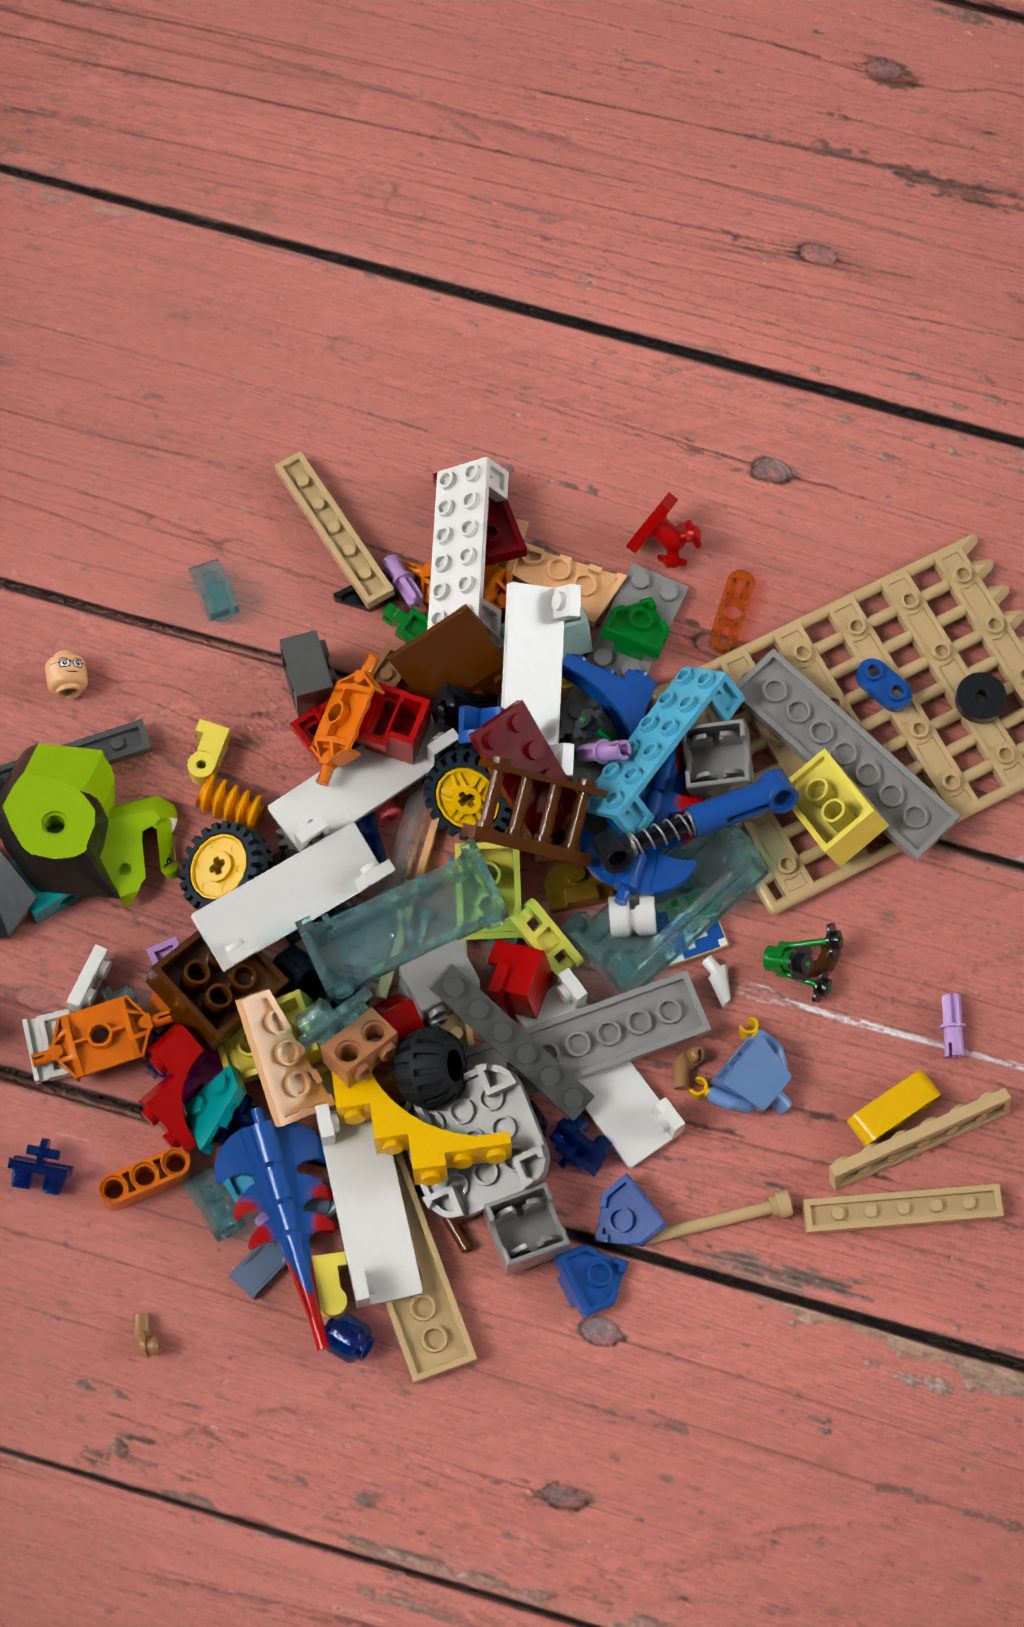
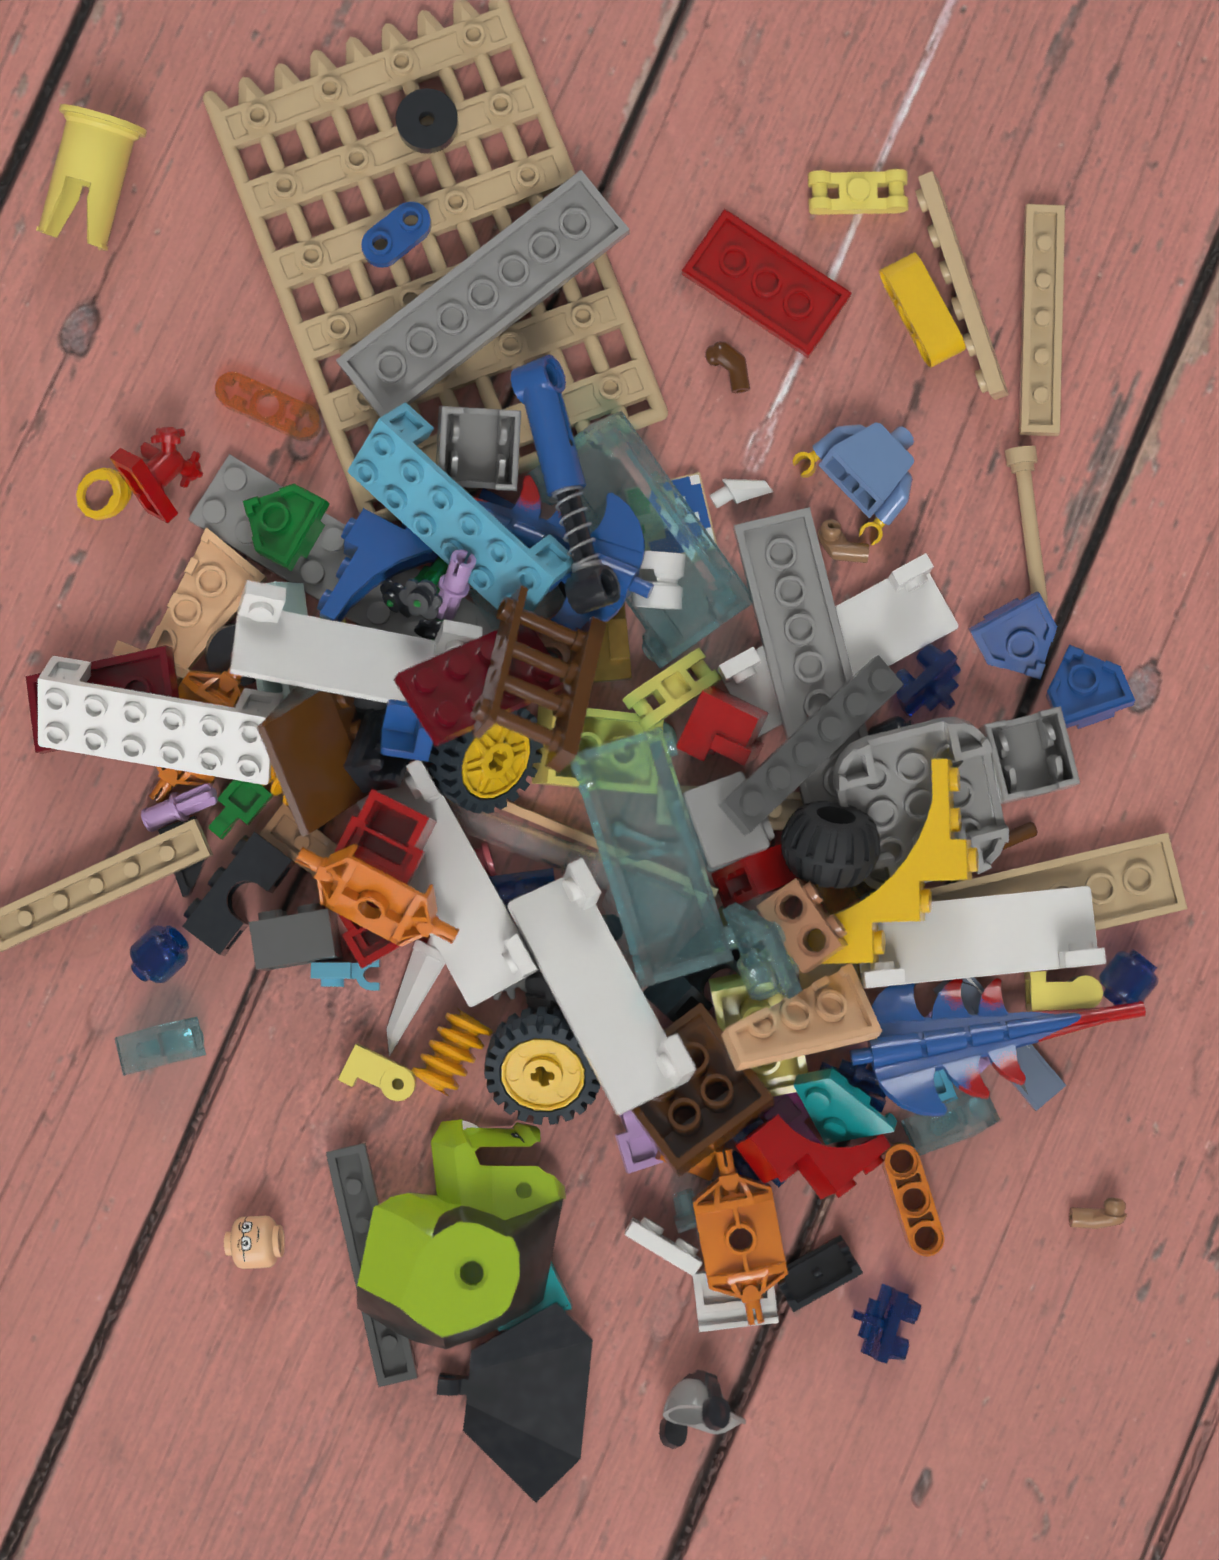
camera: 75 degrees left, 15 degrees up
(77, 1109) = (818, 1273): none -> black hinge
(280, 774) = (419, 977): none -> white bar
(284, 710) = (334, 974): none -> medium azure plate
(285, 580) = (159, 954): none -> clear blue head
(321, 614) = (213, 917): none -> black arch
(636, 509) = (117, 501): none -> yellow piece
(800, 962) = (729, 412): plant -> none
(835, 808) = (556, 317): light yellow slope -> none
(891, 456) = (91, 155): none -> light yellow piece
(896, 983) = (766, 283): none -> red tile
(952, 1026) = (829, 225): lavender axle -> none
(986, 1047) = (857, 192): none -> light yellow plate

